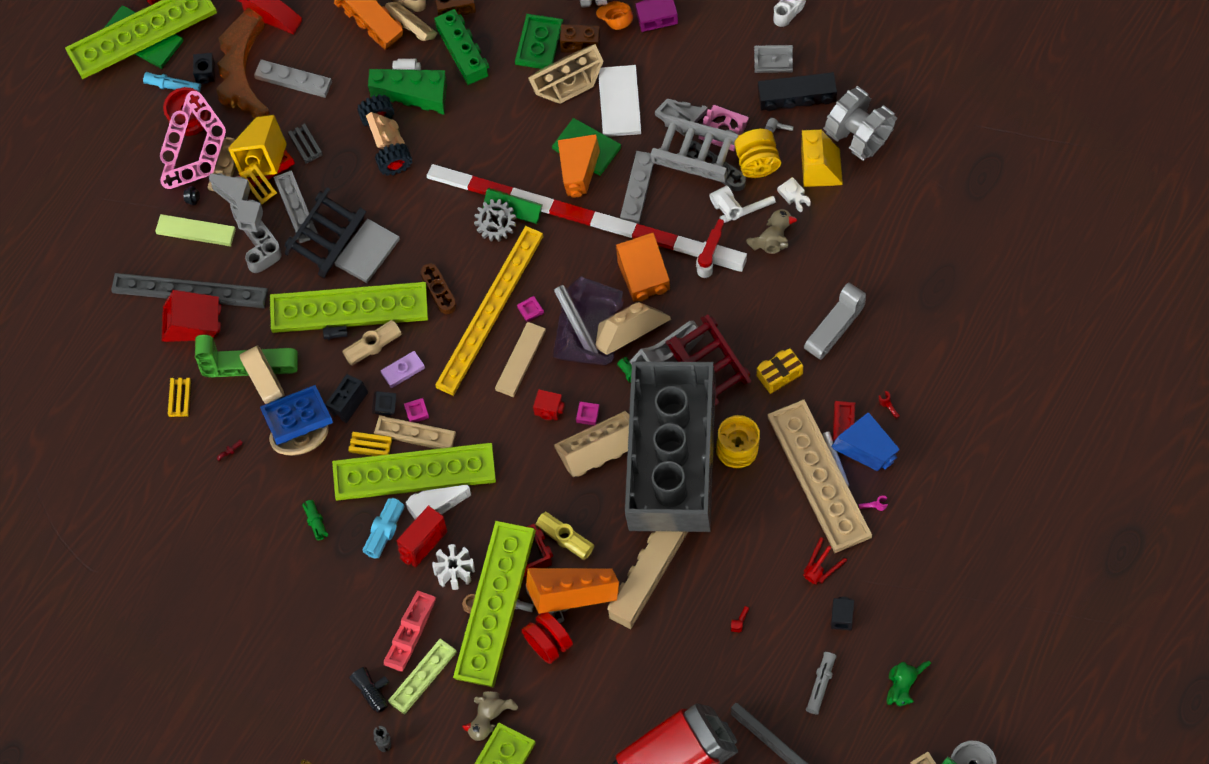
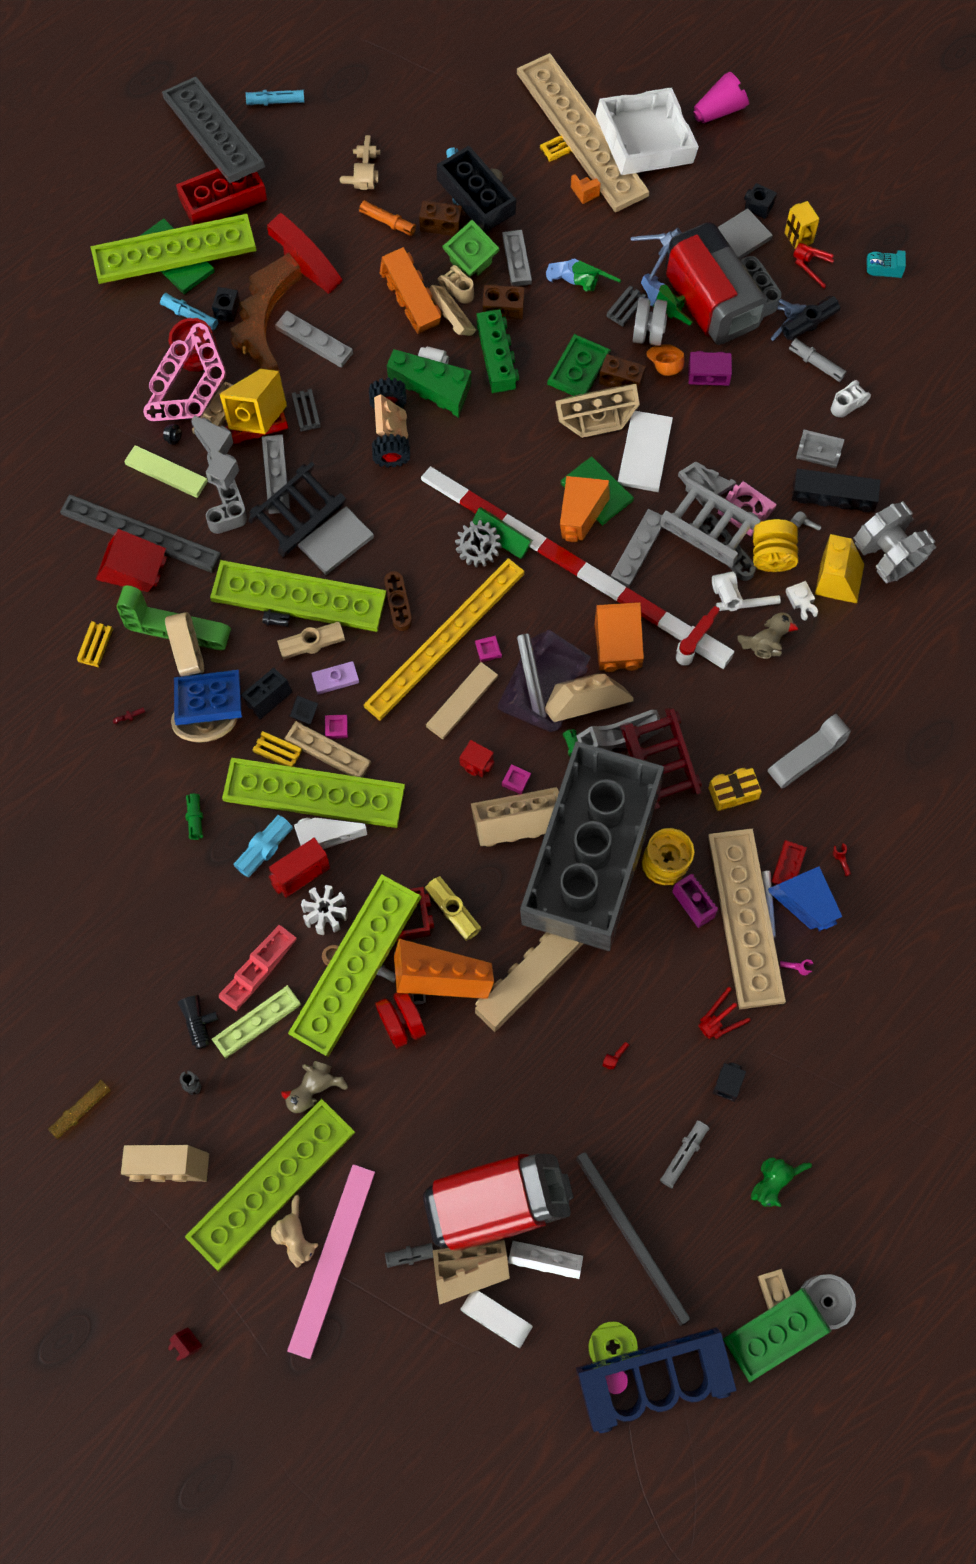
camera: 10 degrees right, 5 degrees up
(249, 171) = (236, 422): yellow tile -> none
(771, 472) = (695, 900): none -> magenta brick

